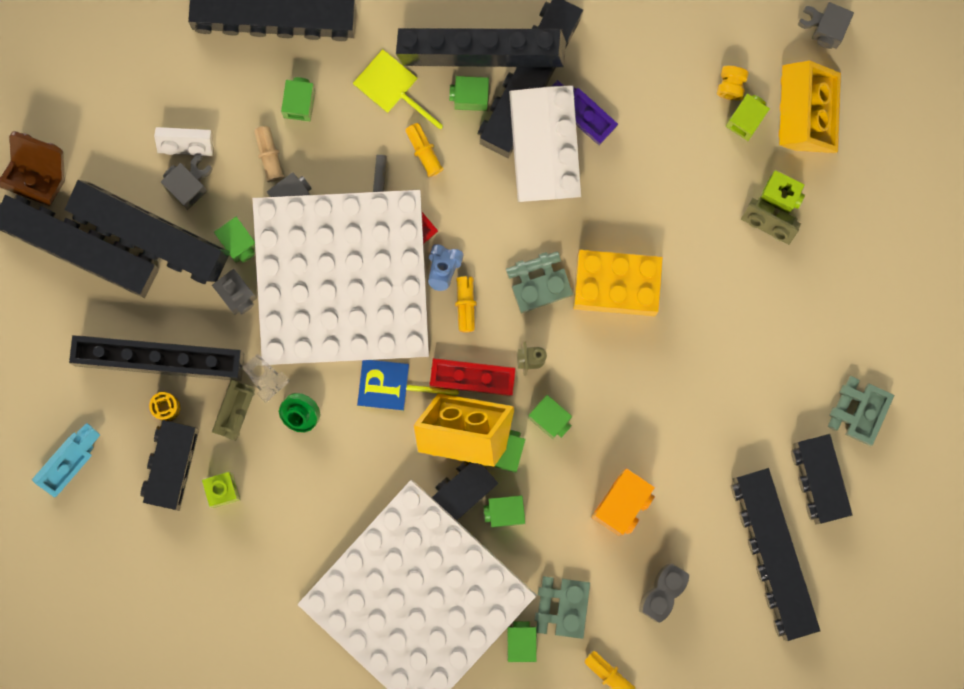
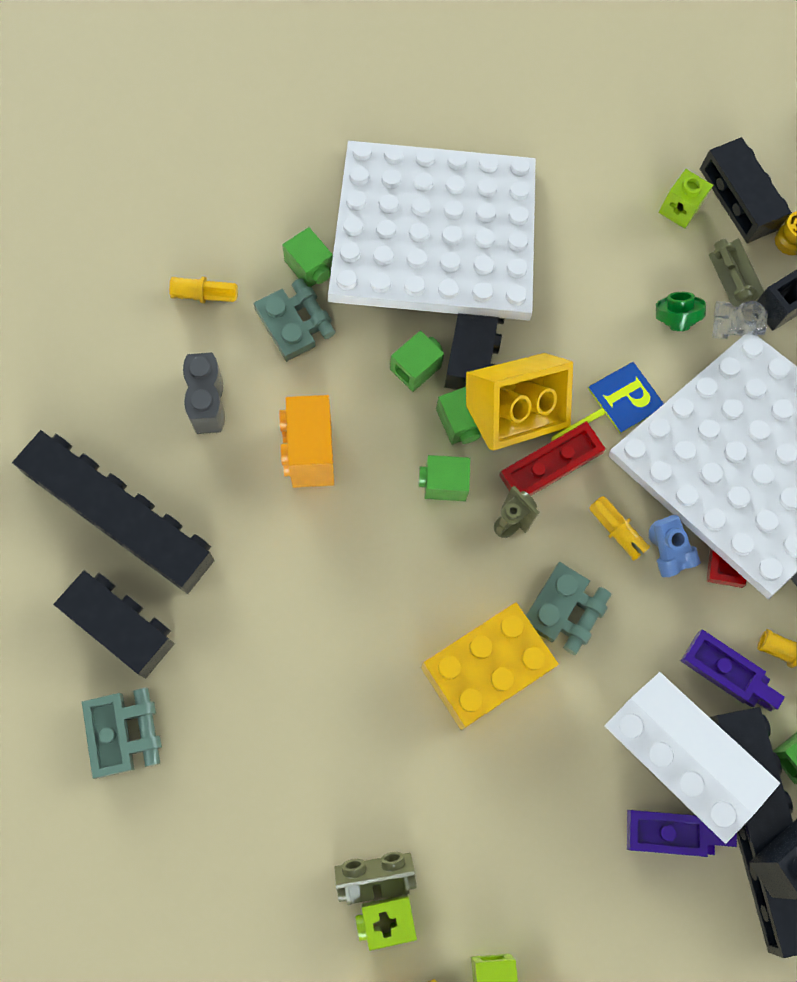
camera: 140 degrees right, 10 degrees down
(473, 171) = (731, 672): none -> dark purple hinge

